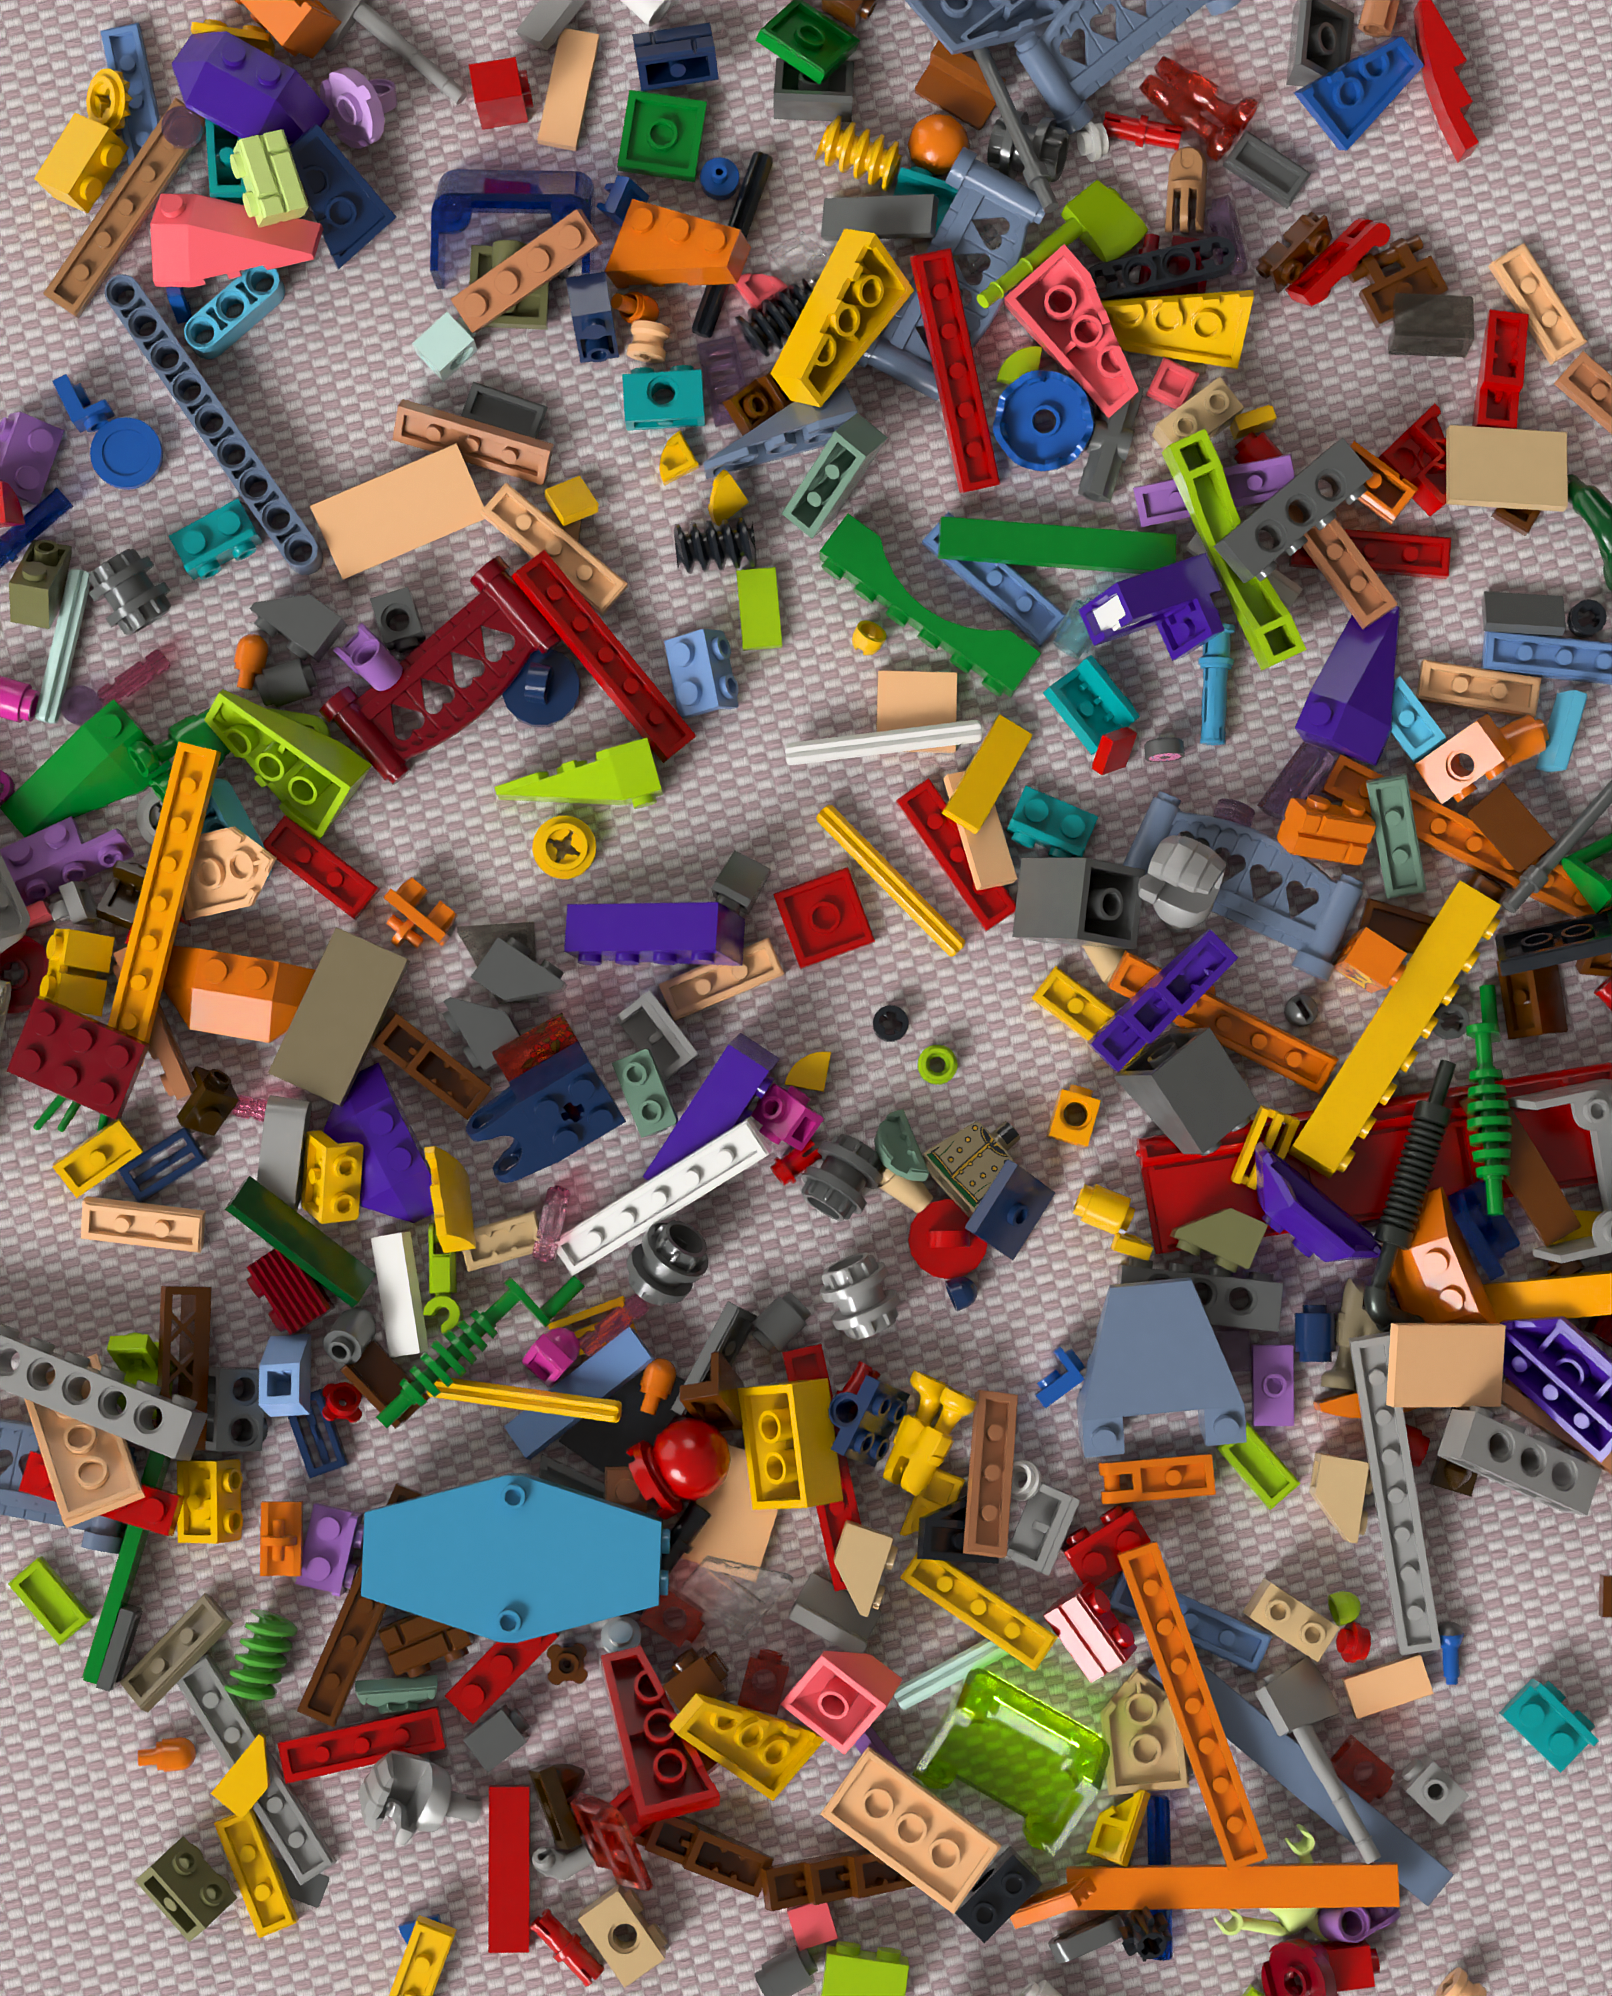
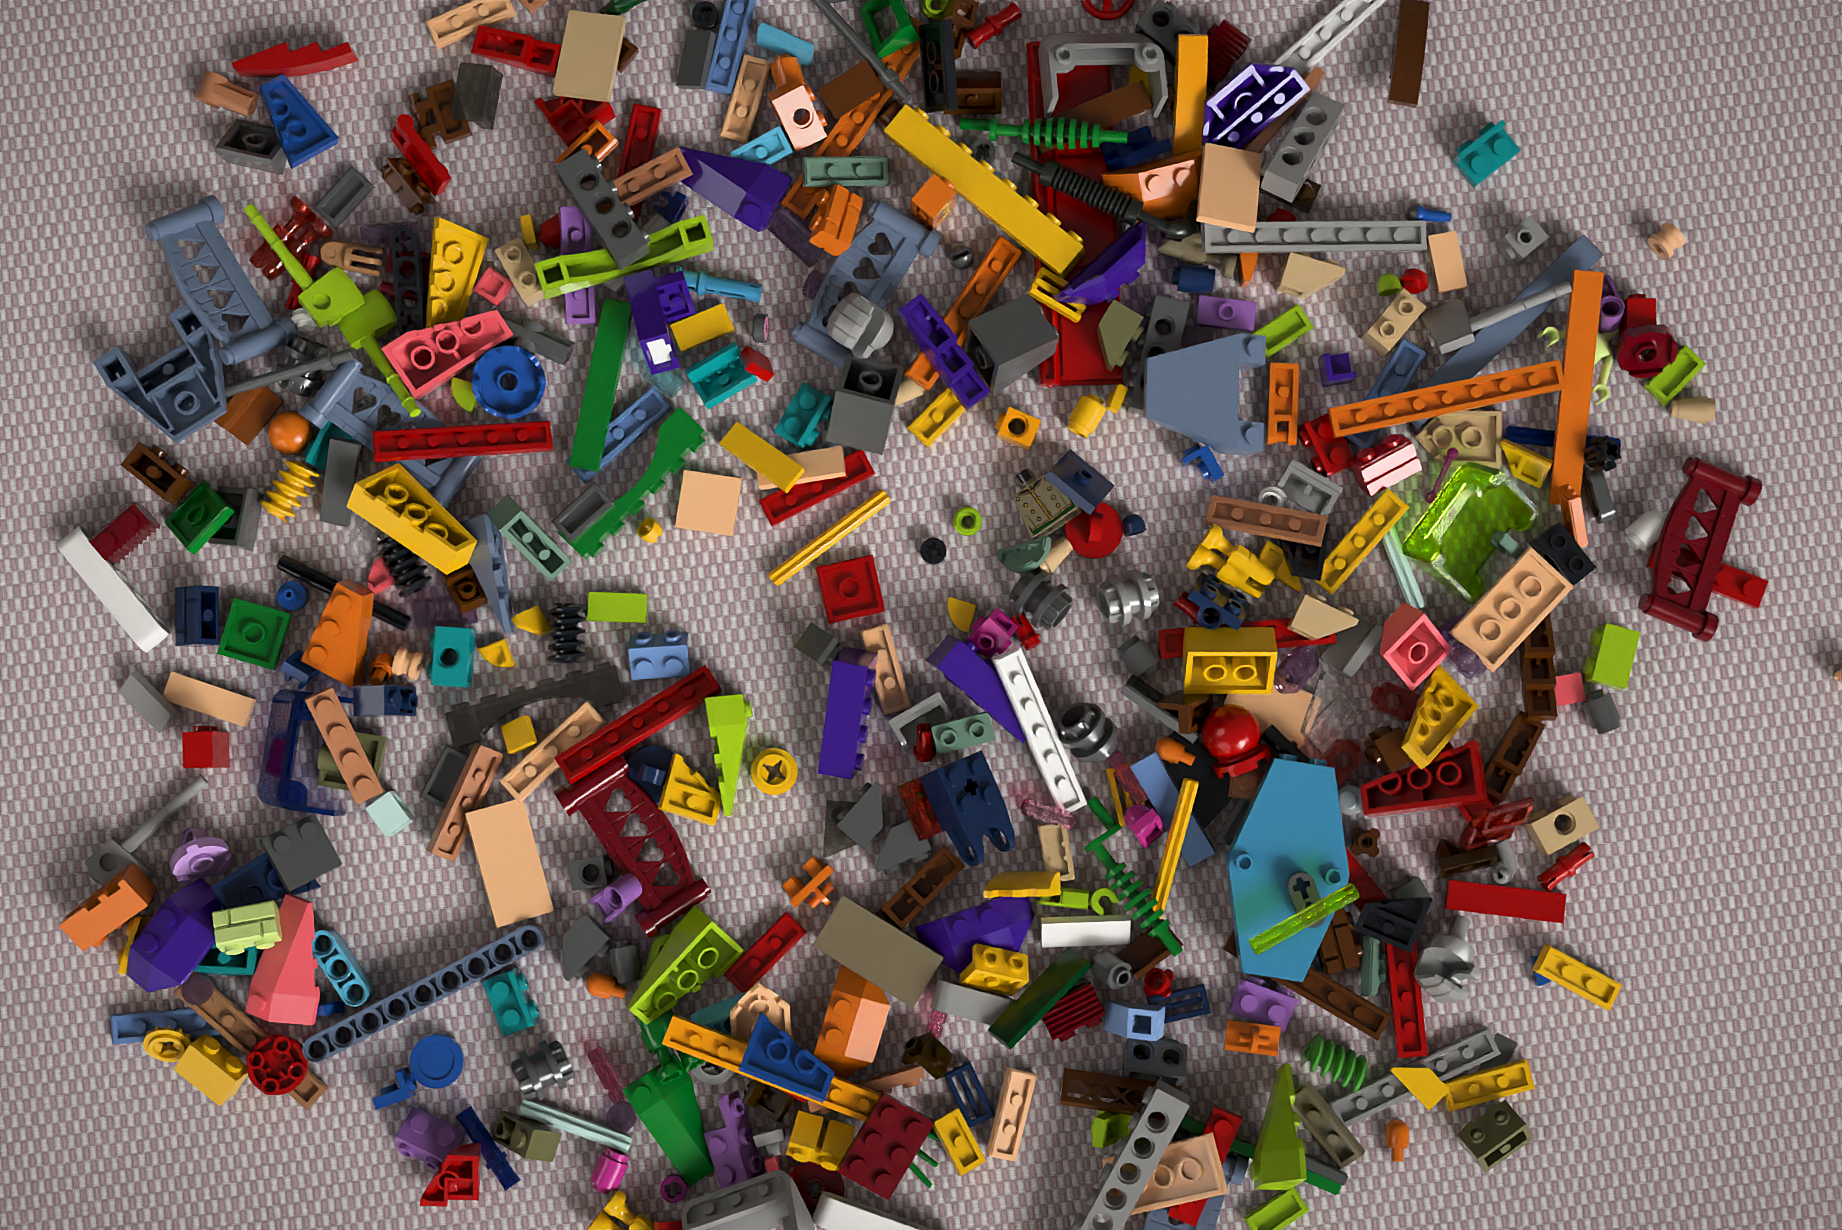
camera: 80 degrees left, 0 degrees up
(96, 245) = (277, 1064): none -> red tile
(125, 1589) = (1279, 1154): none -> lime wedge
(171, 905) = (784, 1063): none -> blue wing
(210, 1502) = (1220, 1086): yellow bracket -> none
(379, 236) = (300, 852): none -> dark grey plate
(444, 1586) = (1304, 918): none -> clear neon green axle
(462, 1714) = (1394, 920): none -> black wing
(477, 1595) = (1296, 897): none -> dark grey beam
(518, 736) = (688, 794): none -> yellow wing
(578, 436) = (472, 723): none -> clear smoke arch
(620, 1045) = (924, 748): none -> red pin
(785, 1540) = (1293, 675): none -> clear purple plate
(831, 1775) = (1467, 660): none -> clear purple plate
(879, 542) = (582, 512): none -> dark grey tile
(883, 742) = (728, 559): white axle -> none
(1000, 1813) = (1503, 543): none -> sand green tile
(1118, 1722) = (1431, 496): none -> magenta hinge
(1123, 163) = (323, 300): none -> lime piece
(1154, 671) = (702, 327): none -> yellow tile
(1215, 1547) = (1335, 369): none -> dark purple panel
(1311, 612) = (676, 206): none -> clear blue tile
(1349, 1756) = (1494, 296): clear red brick -> none
(1395, 924) = (907, 182): reddish brown tile -> none

